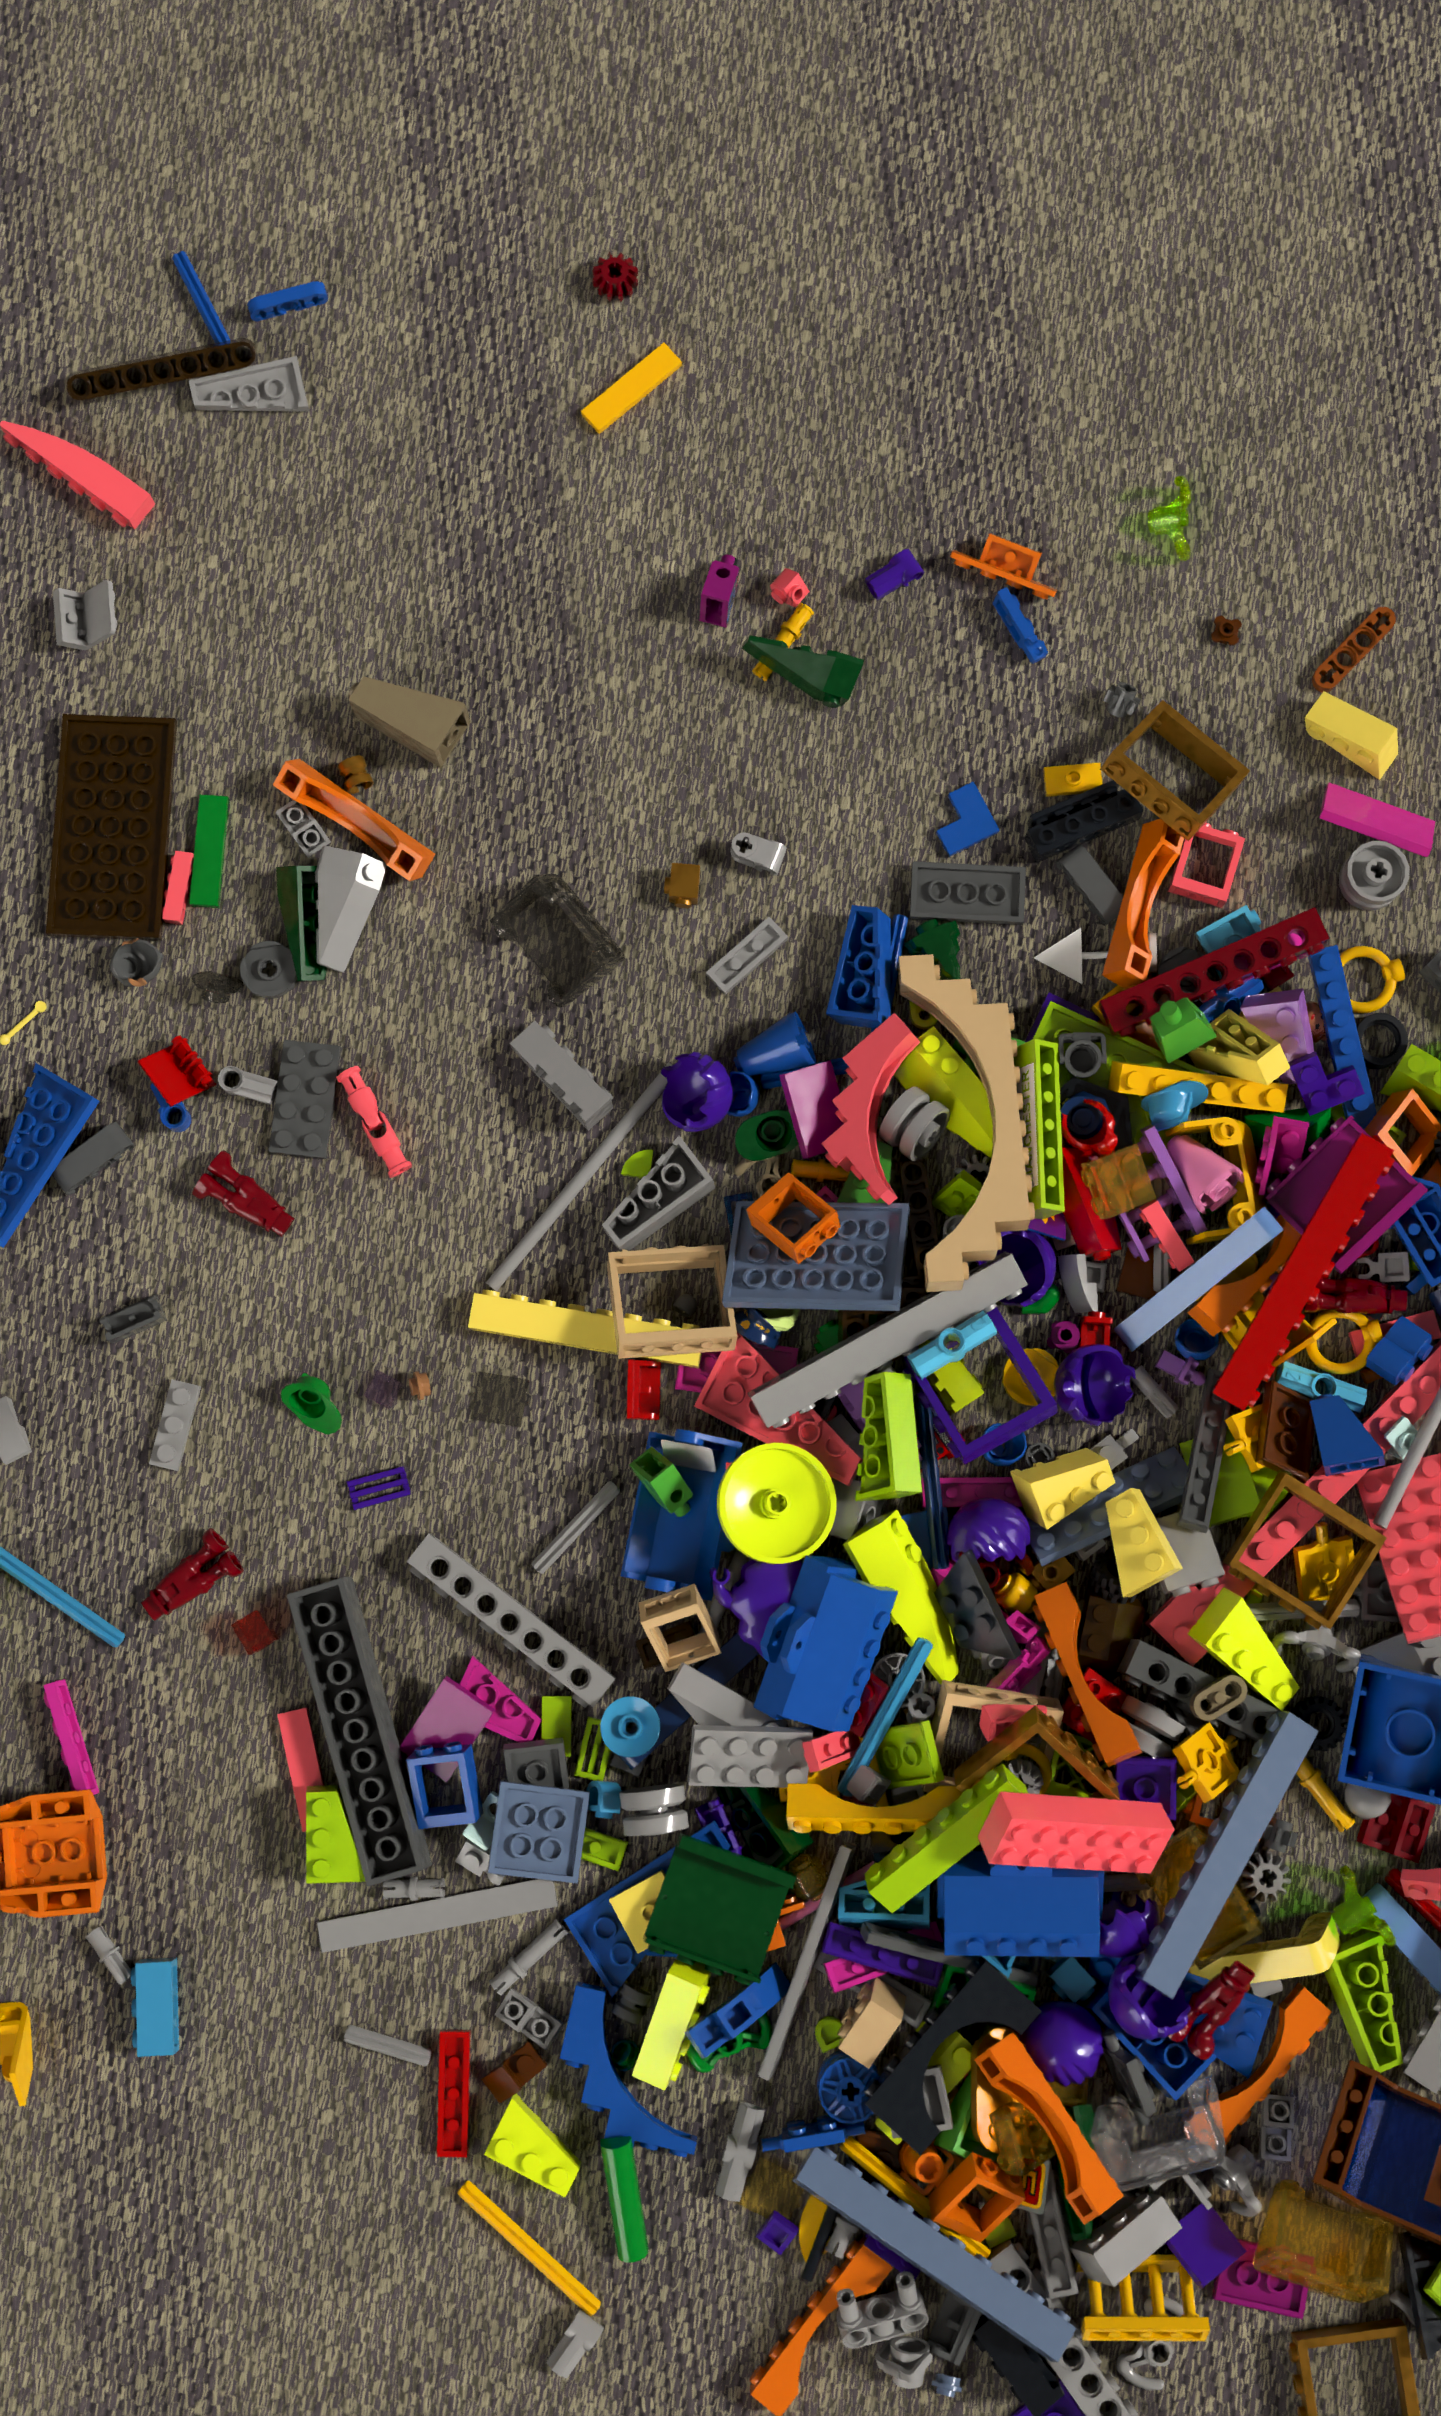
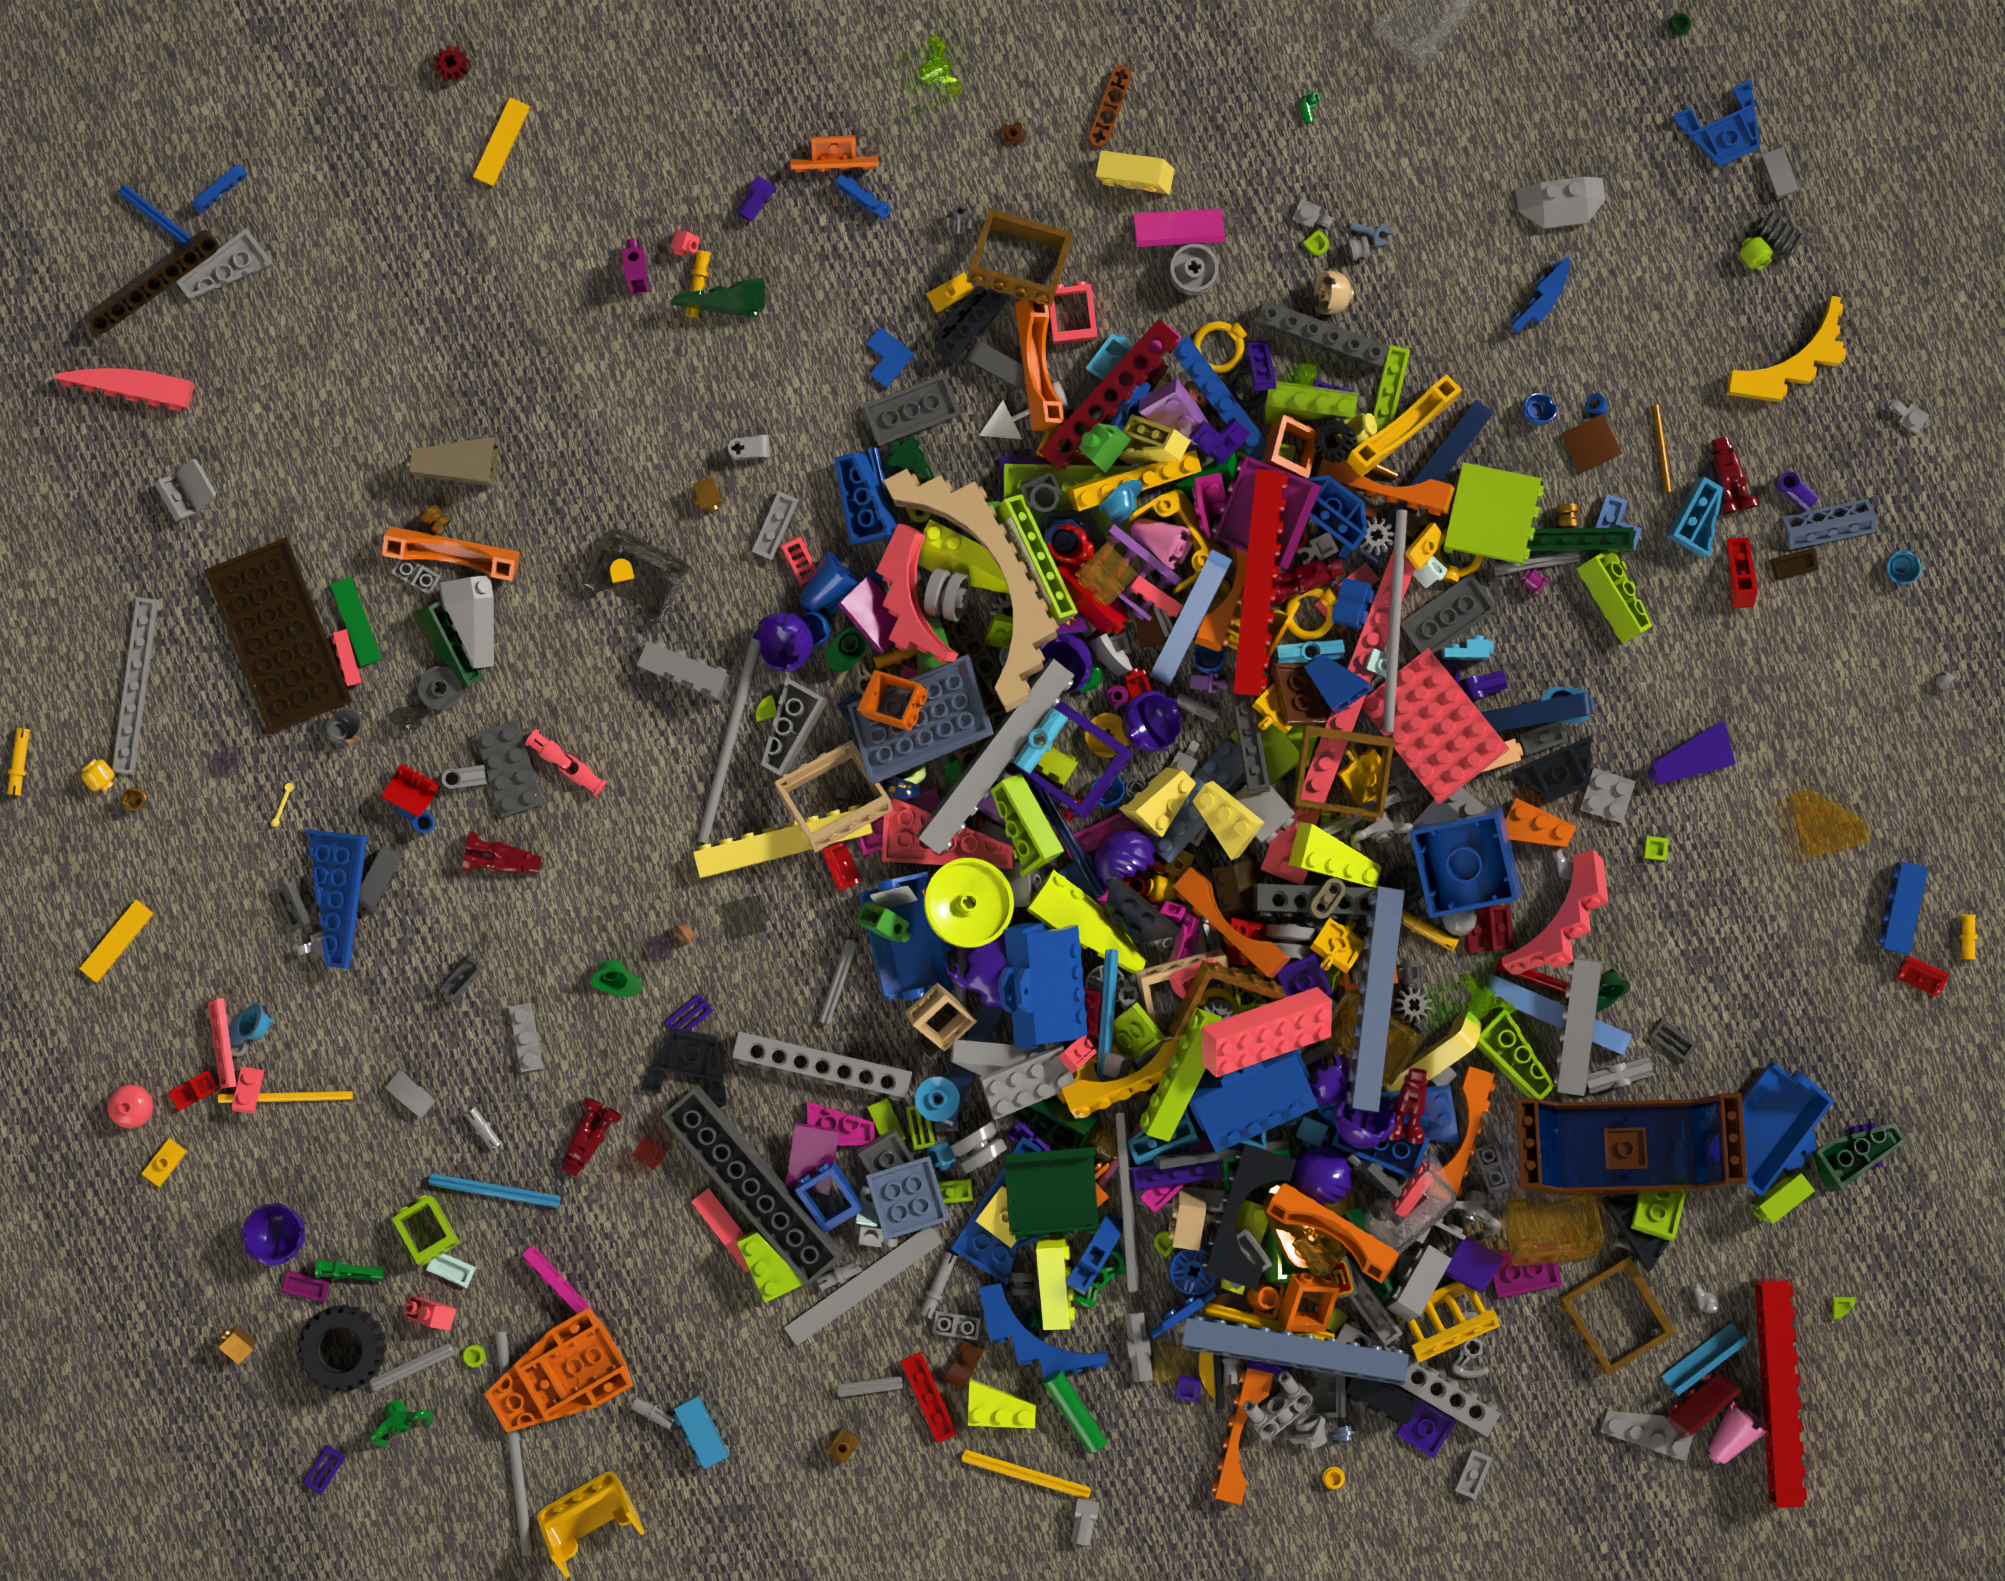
camera: 30 degrees left, 5 degrees up
(71, 1510) = (483, 1128): none -> light grey pin
(321, 2106) = (843, 1446): none -> pearl gold brick
(359, 1536) = (690, 1055): none -> black wing
(543, 928) = (621, 571): none -> yellow tile
(756, 984) = (784, 546): none -> coral slope
(1168, 2116) = (1411, 1193): none -> coral piece
(1408, 1021) = (1261, 366): none -> dark purple tile

